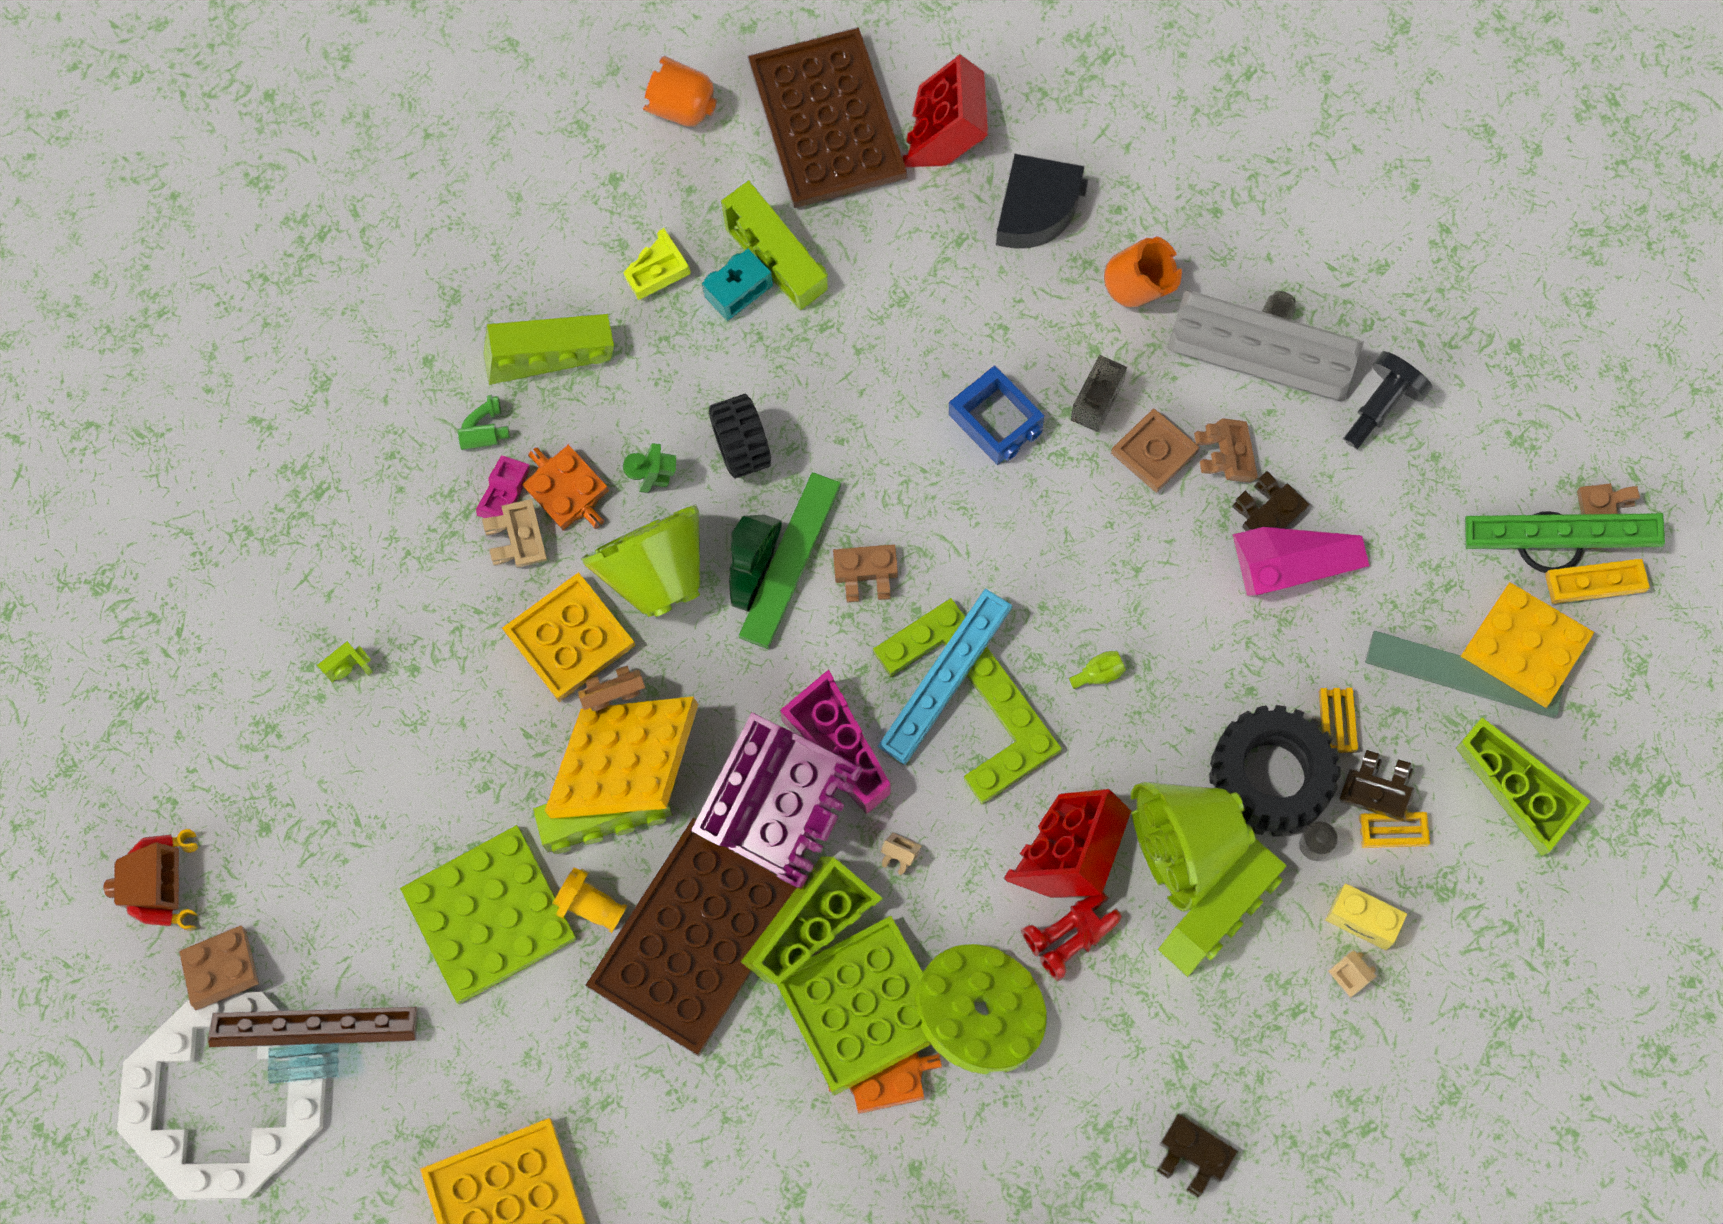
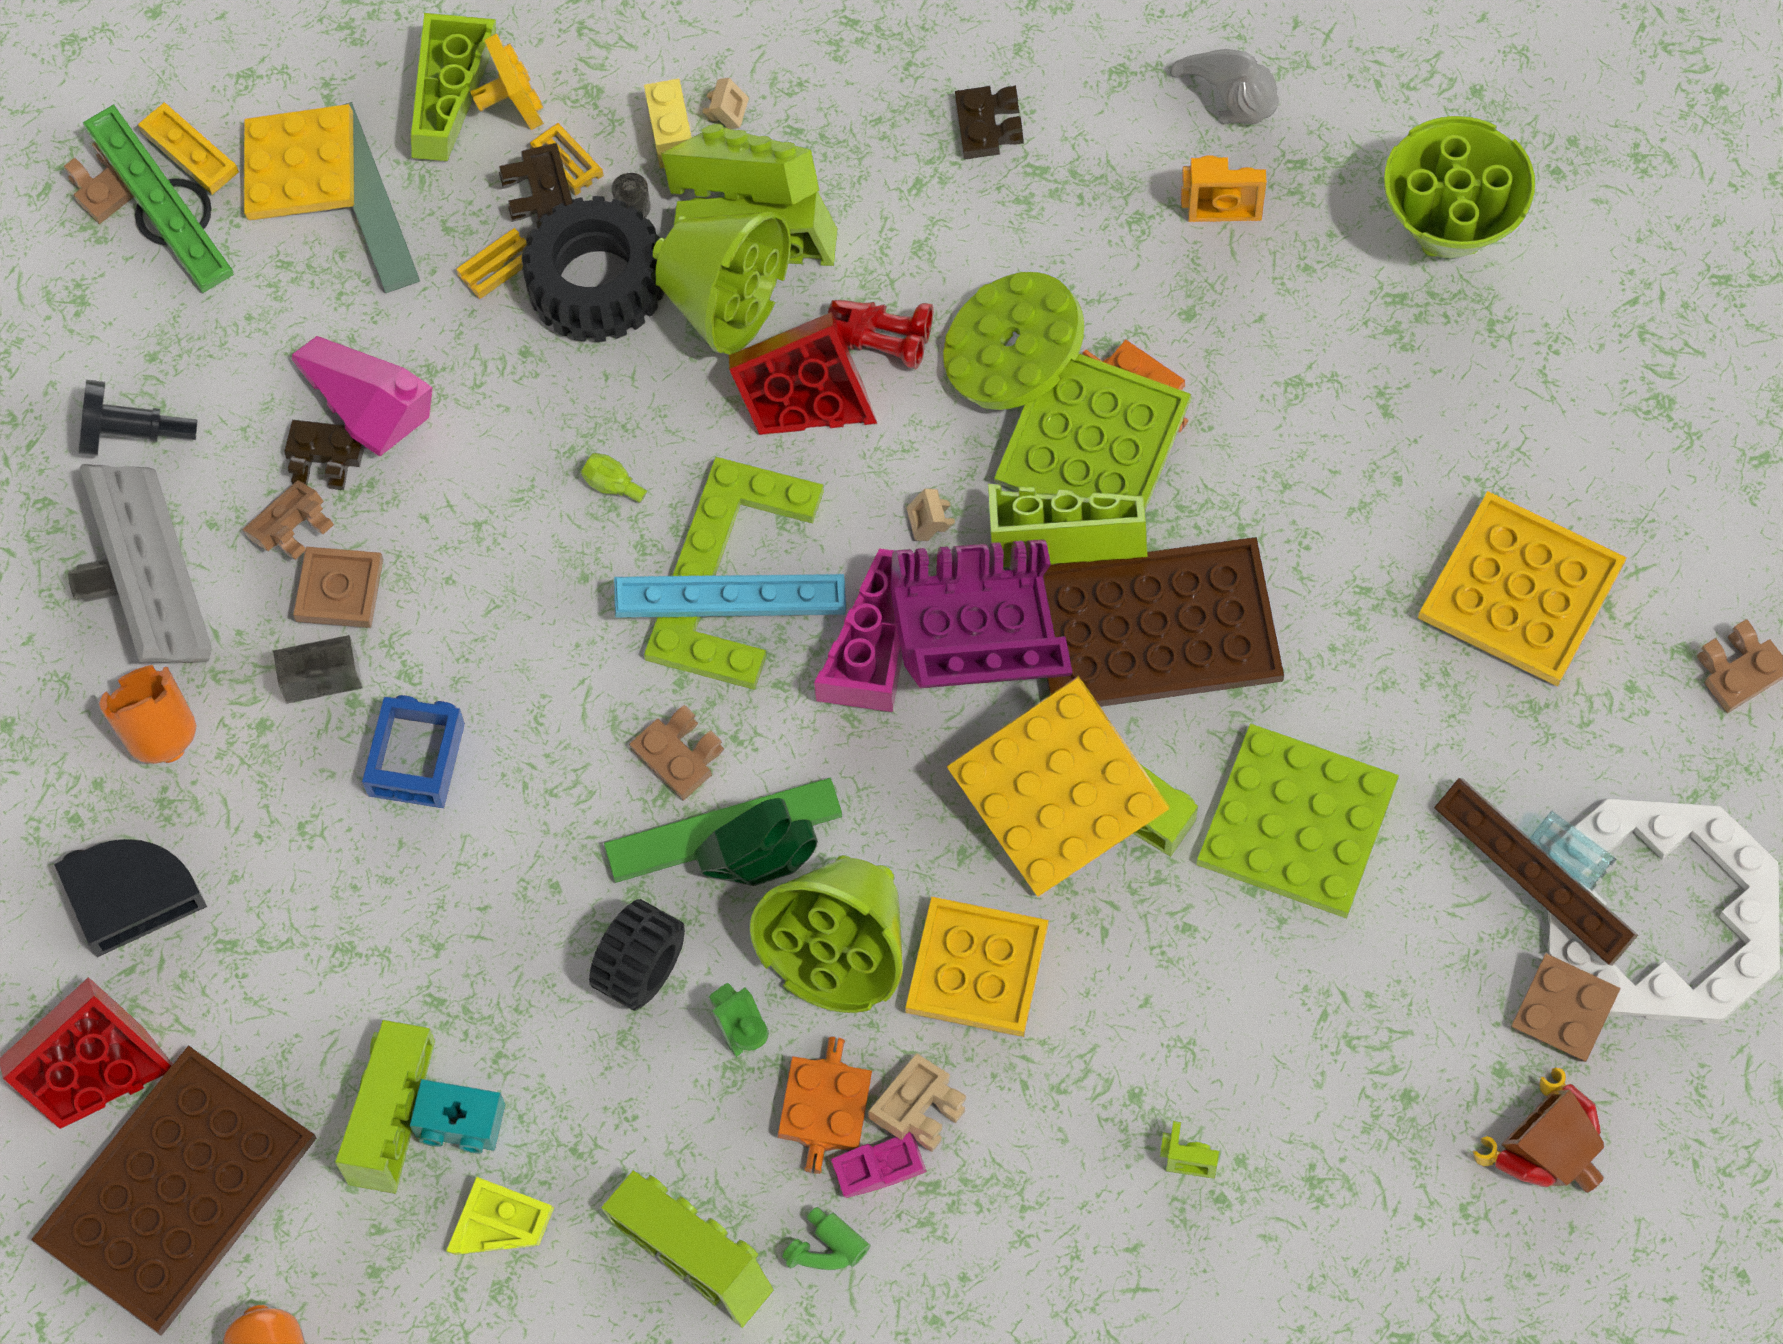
camera: 130 degrees left, 5 degrees down
(587, 901) = (1214, 742): yellow piece -> none
(599, 694) = (1001, 861): medium nougat plate -> none
(1280, 919) = (741, 167): none -> lime wedge
(1483, 825) = (512, 83): none -> yellow plate

